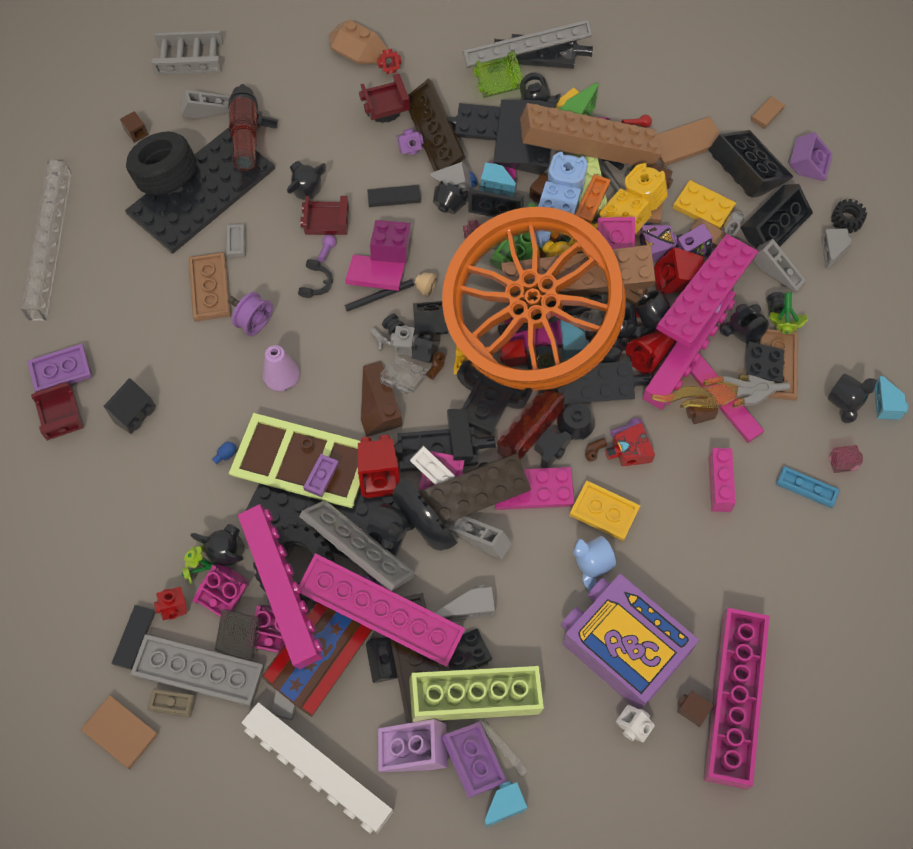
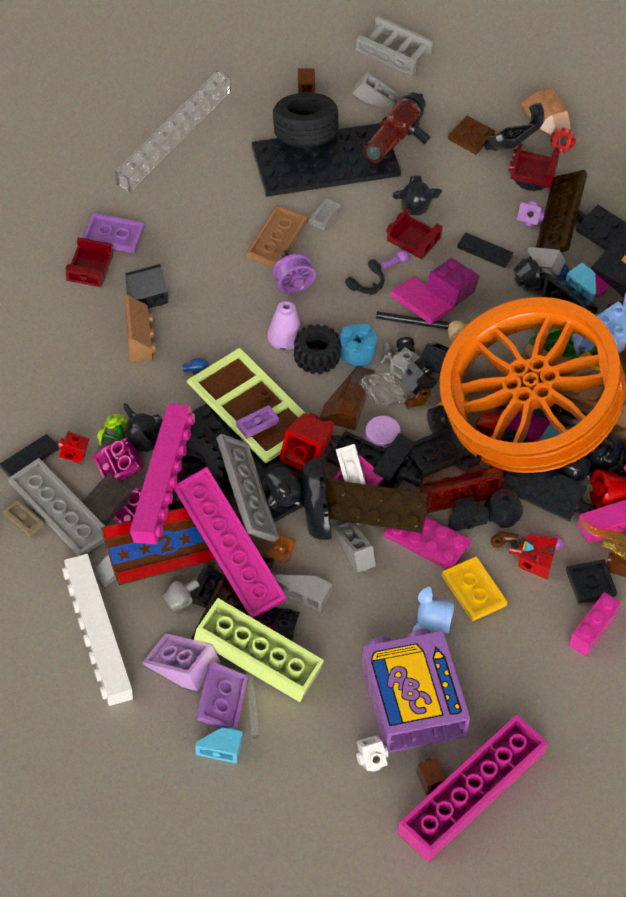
camera: 30 degrees right, 10 degrees down
(150, 451) = (139, 330): none -> medium nougat slope
(309, 98) = (471, 134): none -> reddish brown plate
(320, 359) = (317, 337): none -> black tyre
(349, 81) = (513, 136): none -> black piece
(352, 346) = (358, 344): none -> dark azure brick
(365, 685) = (179, 595): none -> light grey piece
(423, 581) = (282, 548): none -> clear orange bracket
(429, 415) = (382, 431): none -> lavender head
(689, 442) = (591, 580): none -> black plate

